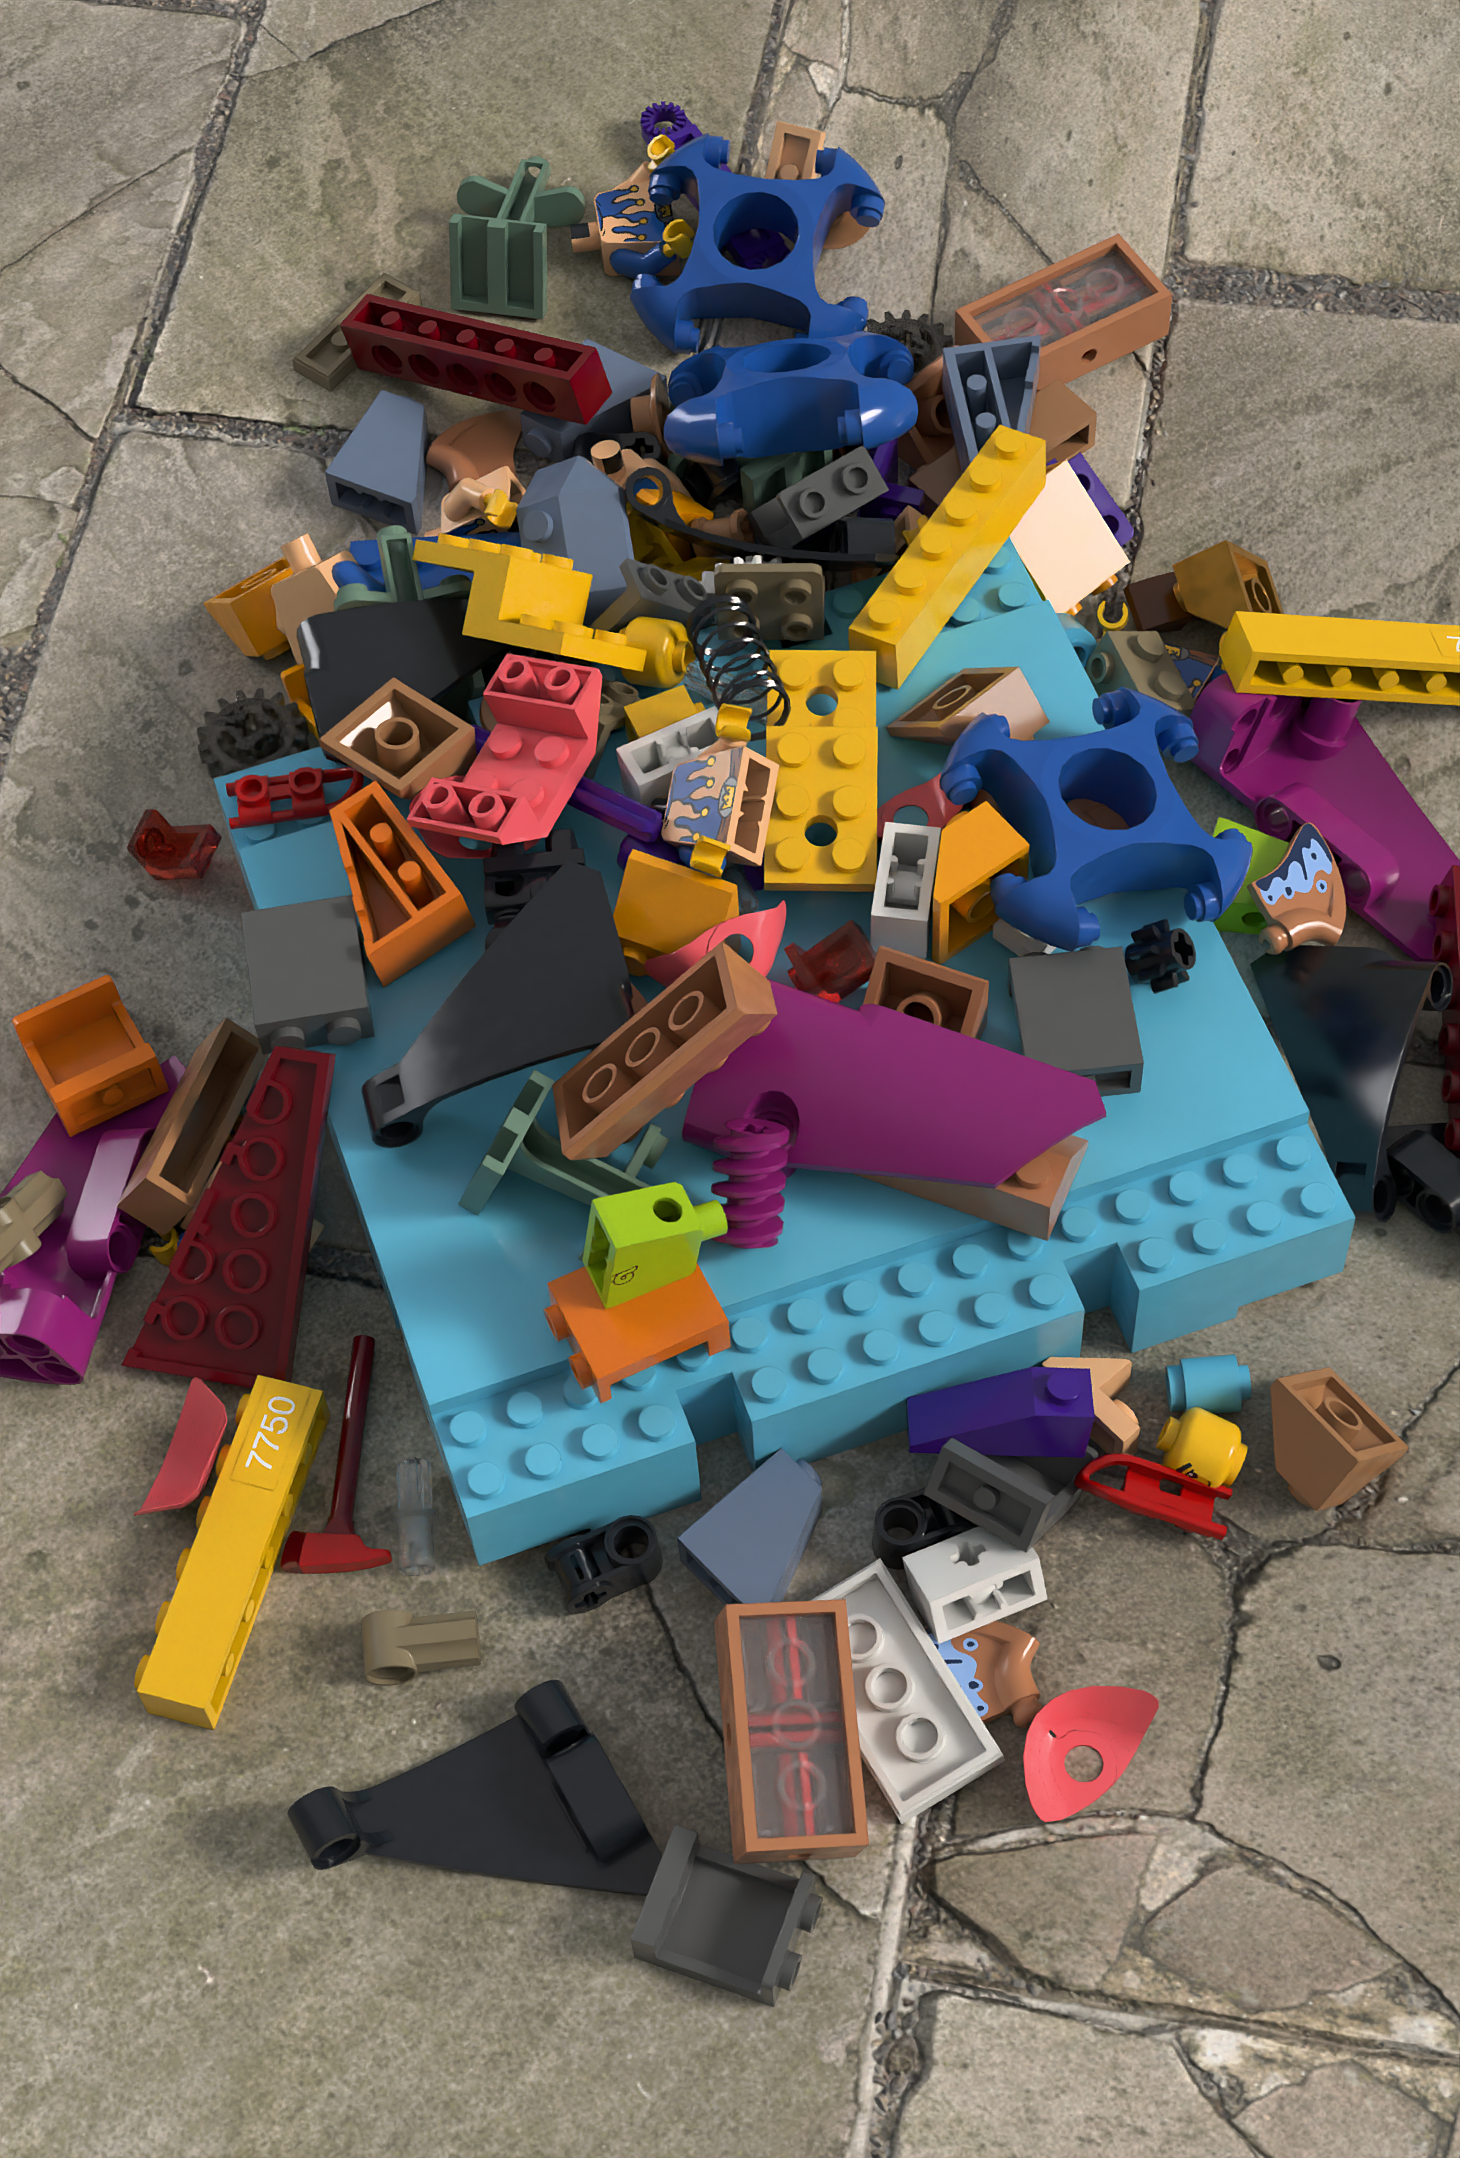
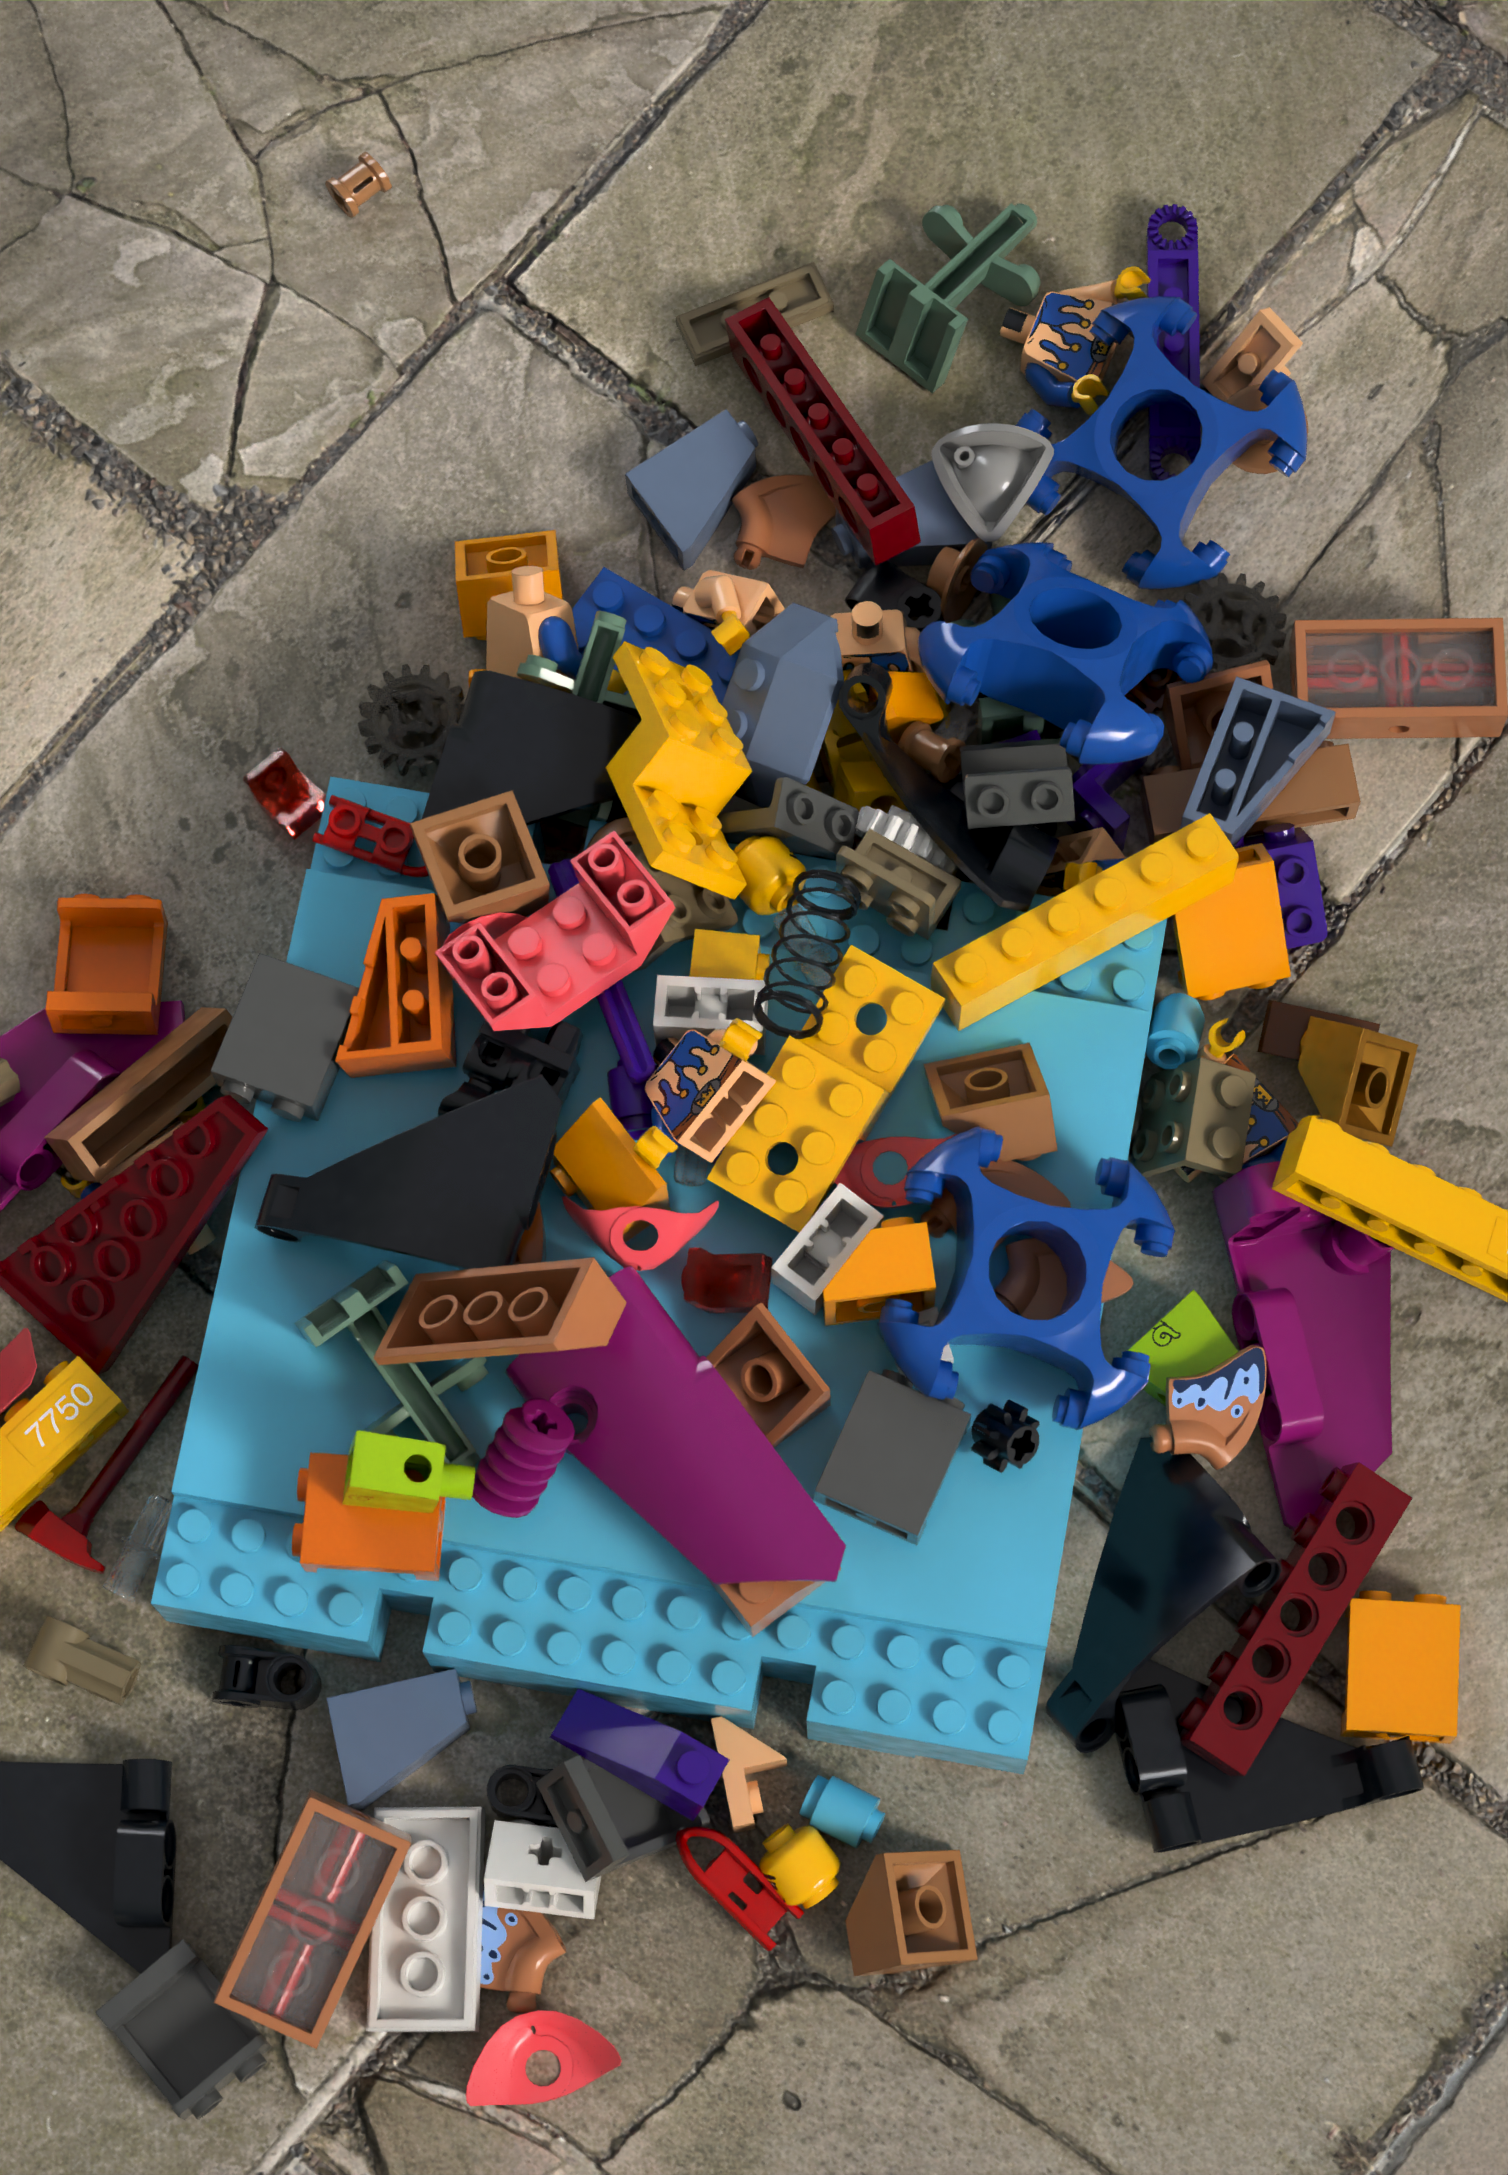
camera: 30 degrees right, 15 degrees up
(636, 322) = (991, 473): none -> light grey hat

